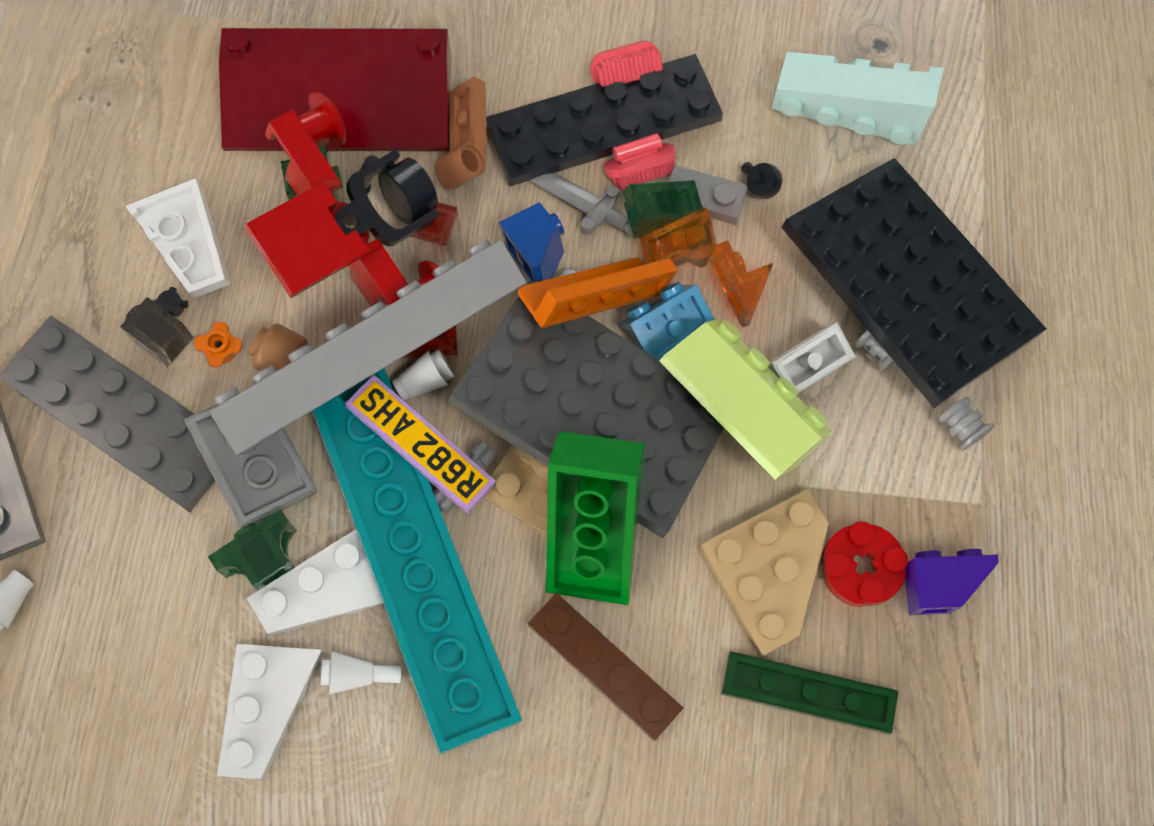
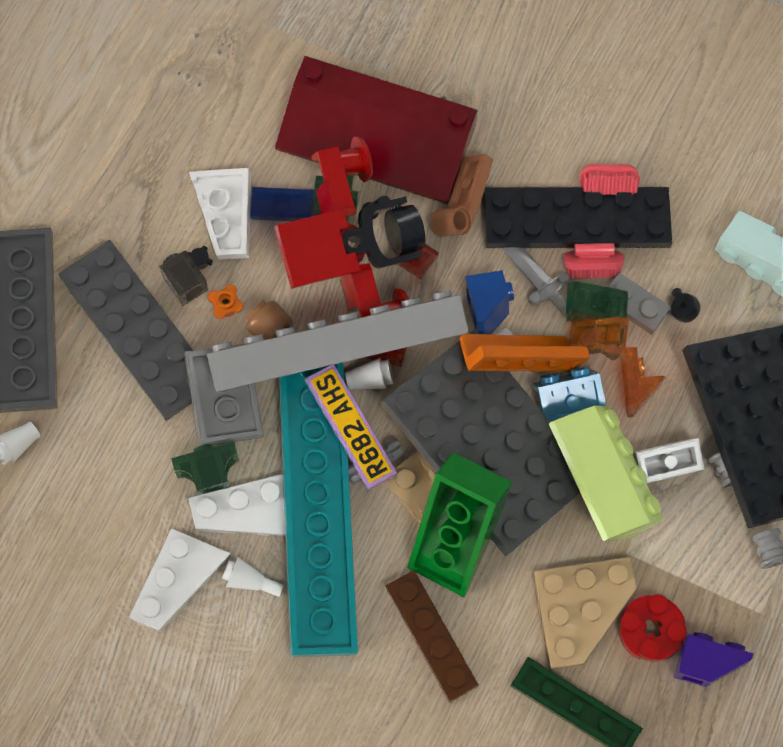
camera: 20 degrees right, 0 degrees up
(236, 209) = (281, 204): none -> clear blue plate

